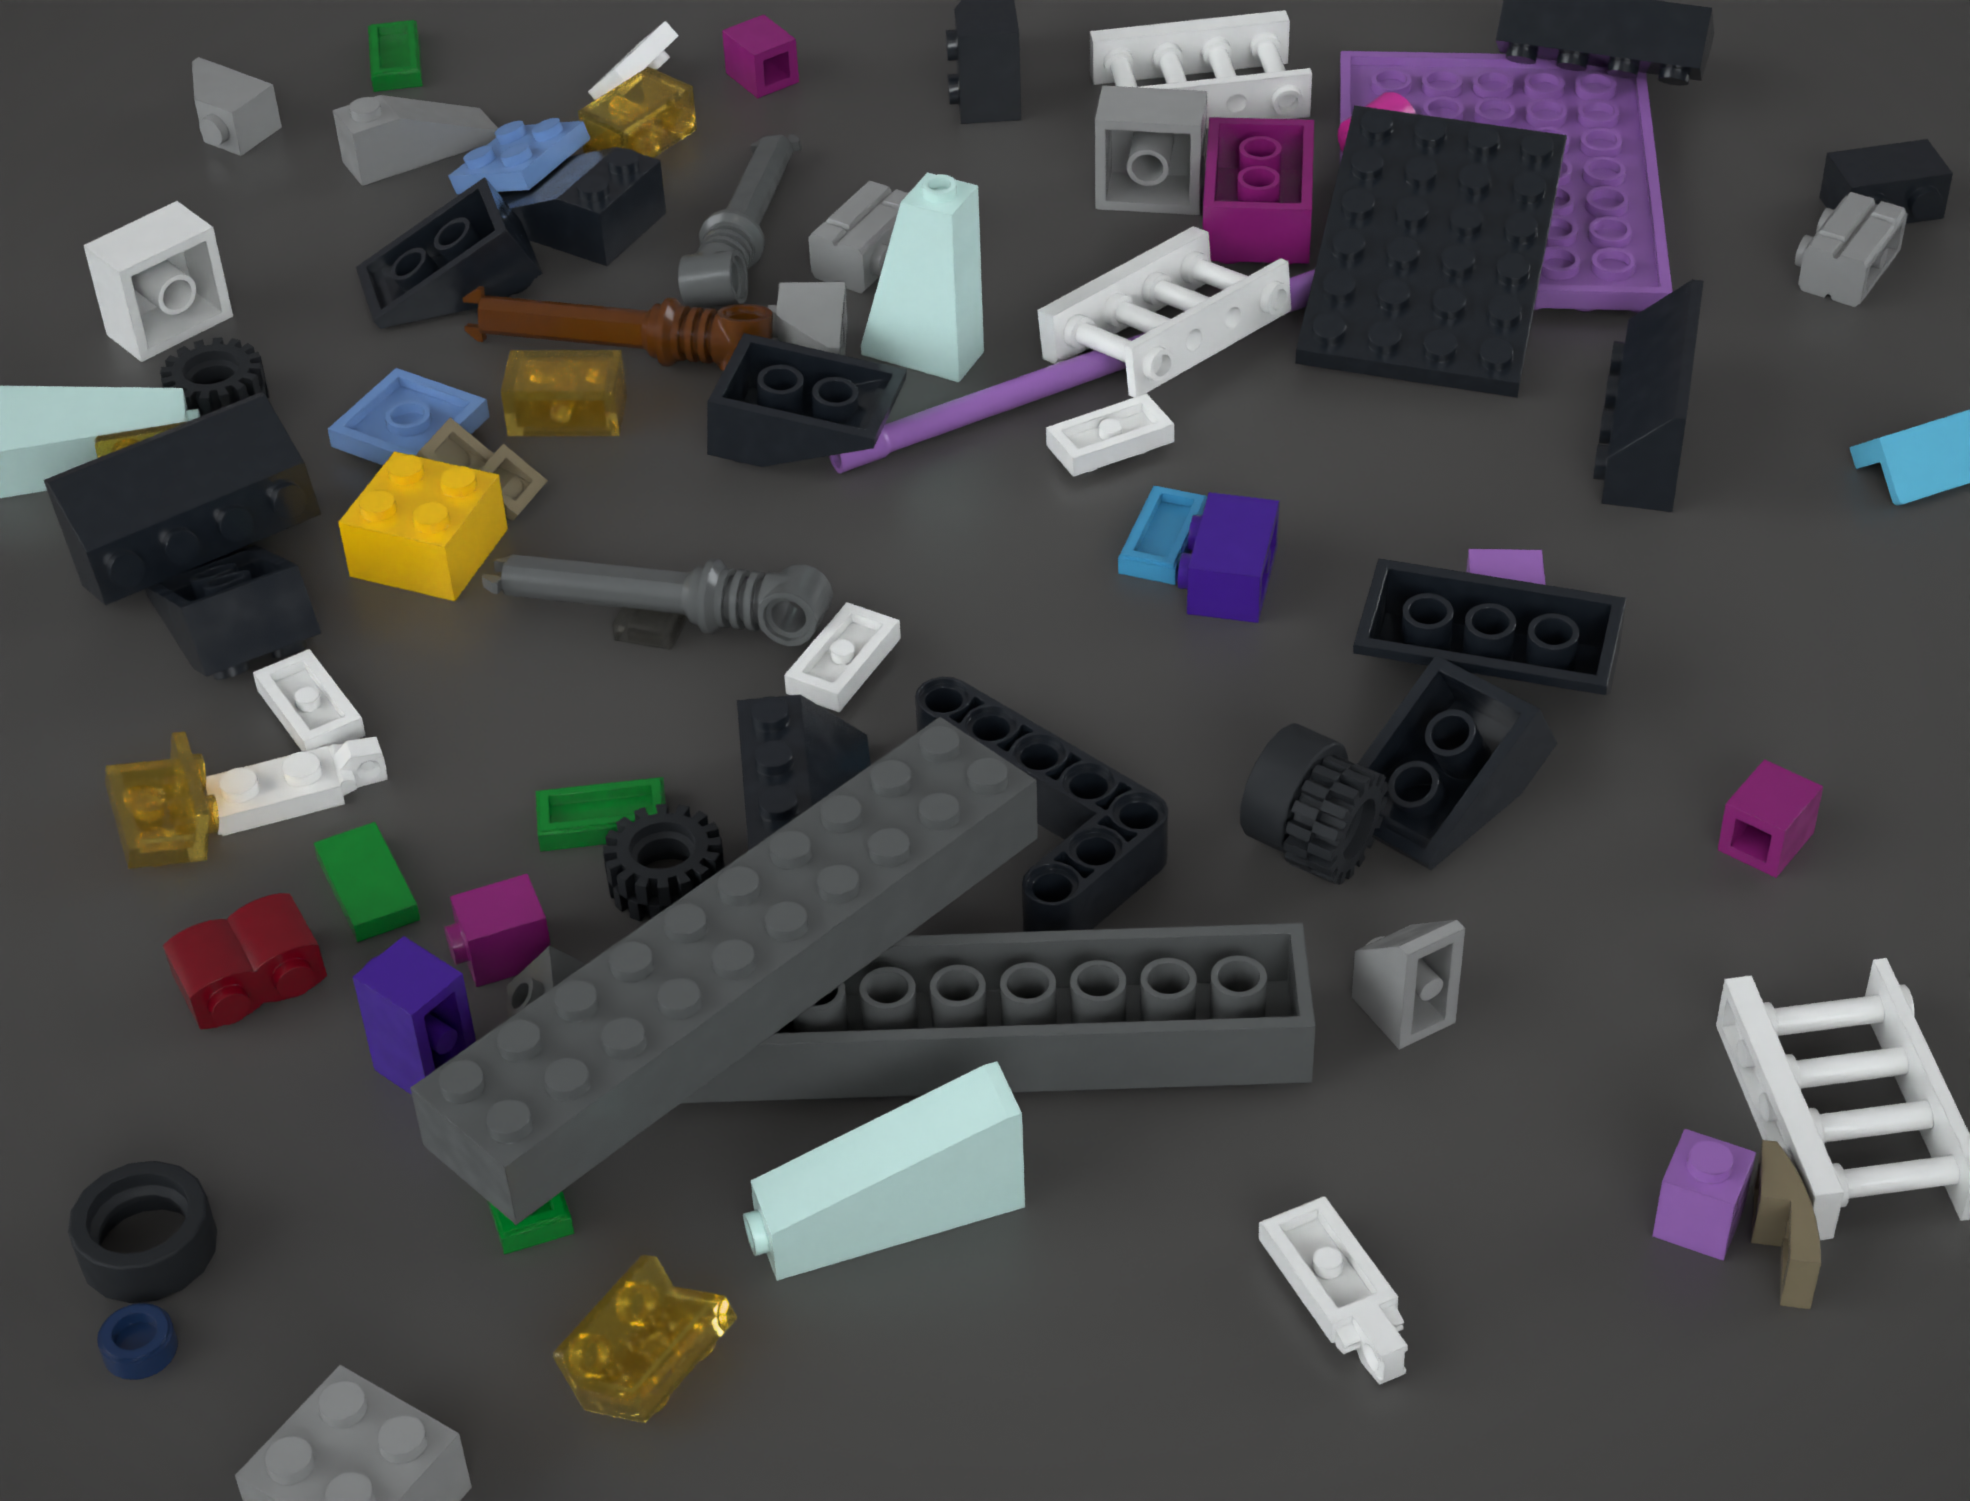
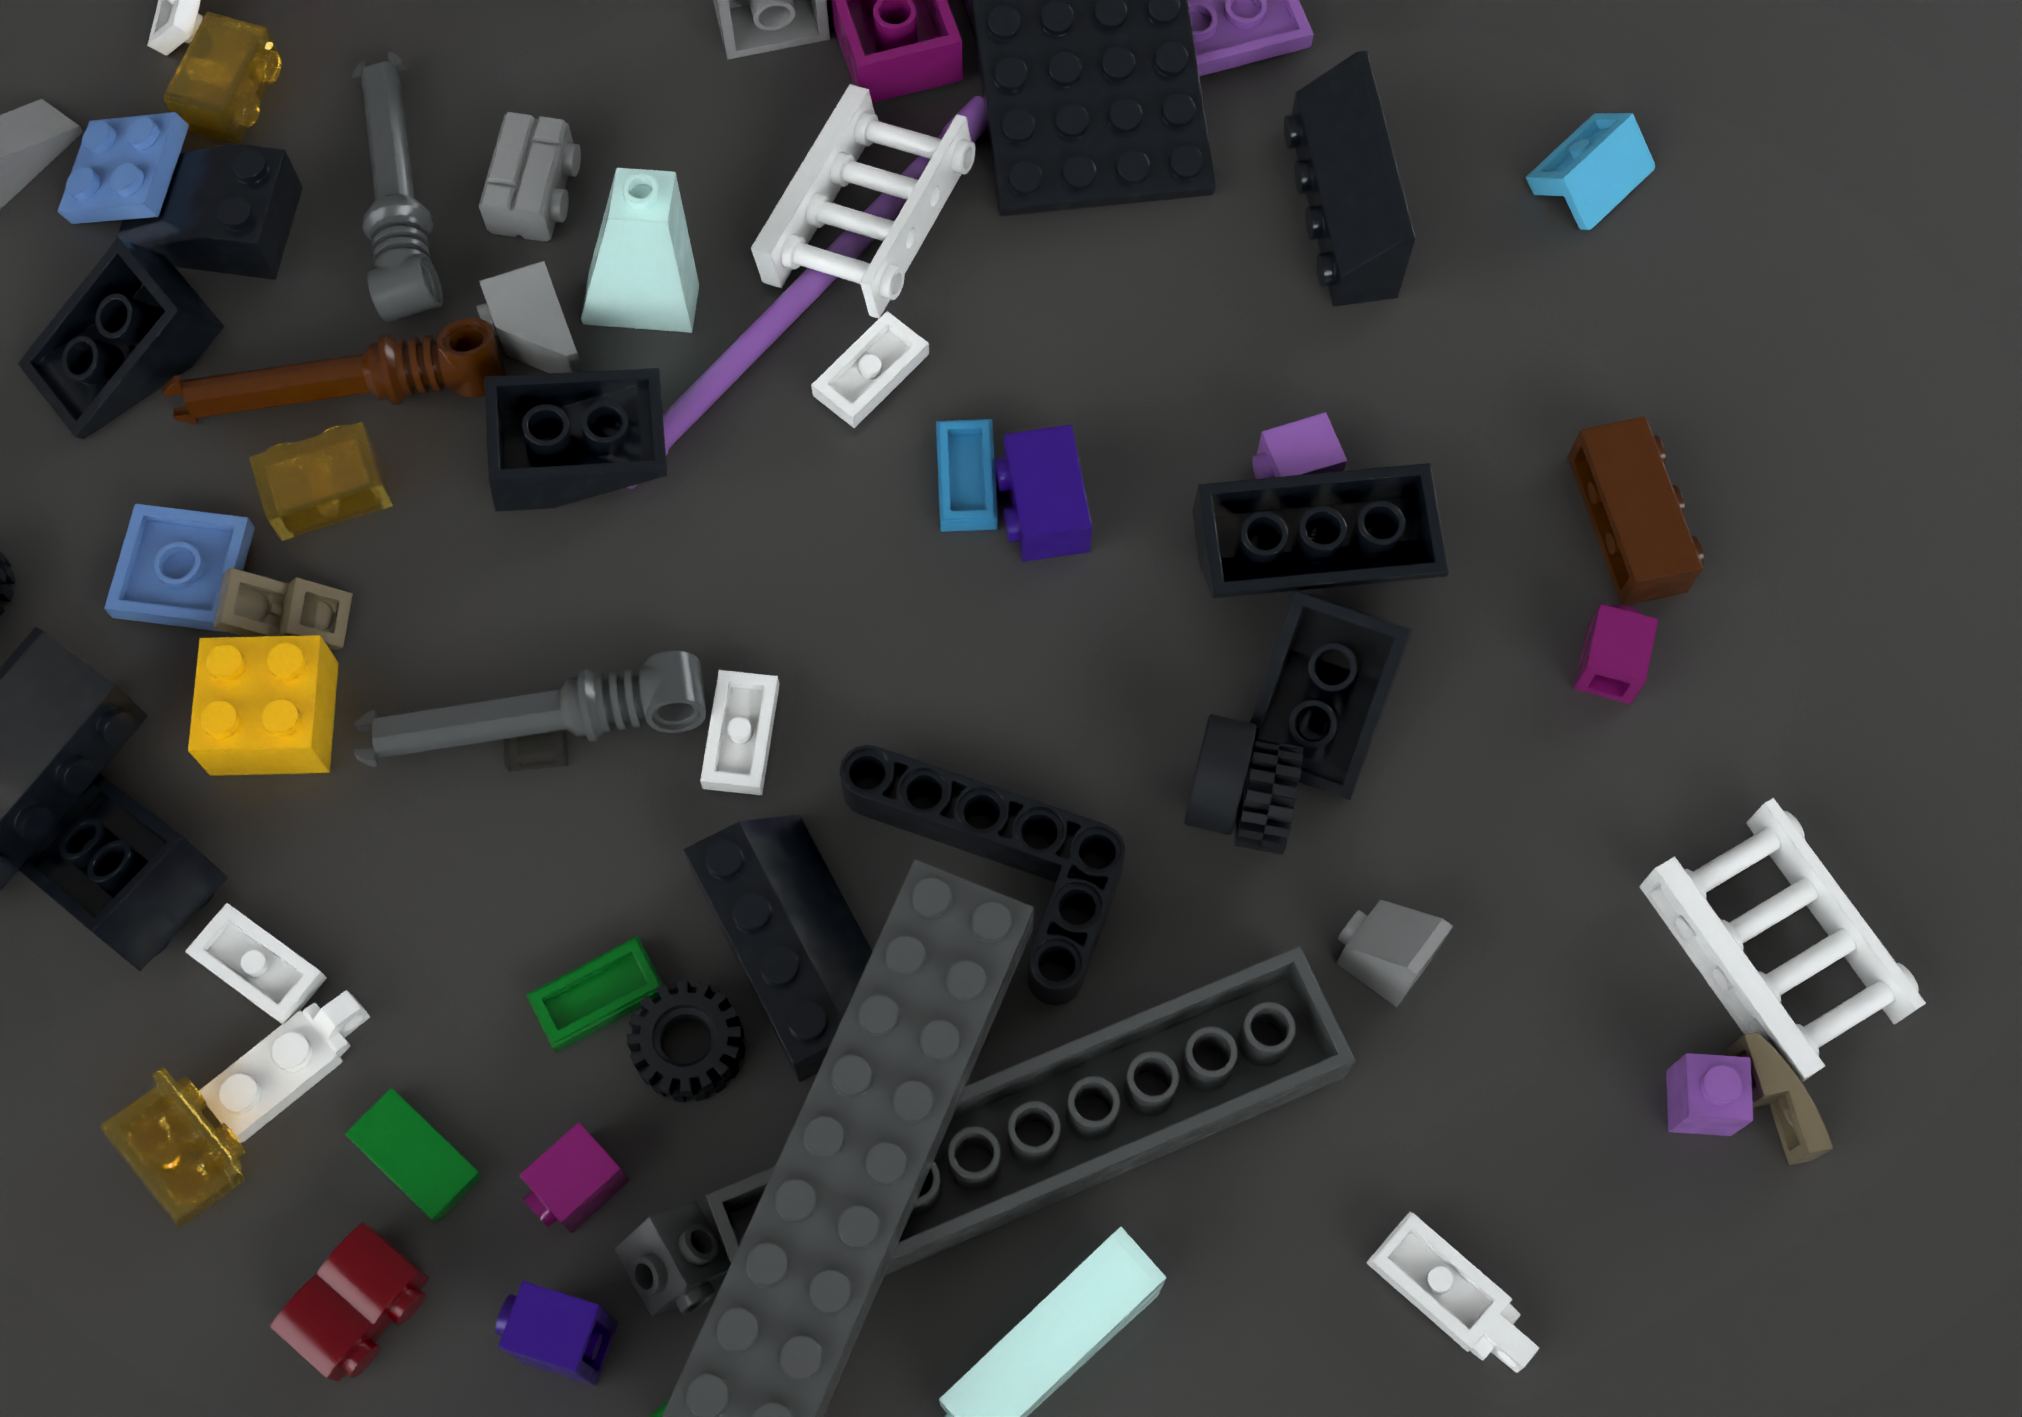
camera: 25 degrees left, 25 degrees up
(1848, 714) = (1635, 511): none -> reddish brown brick

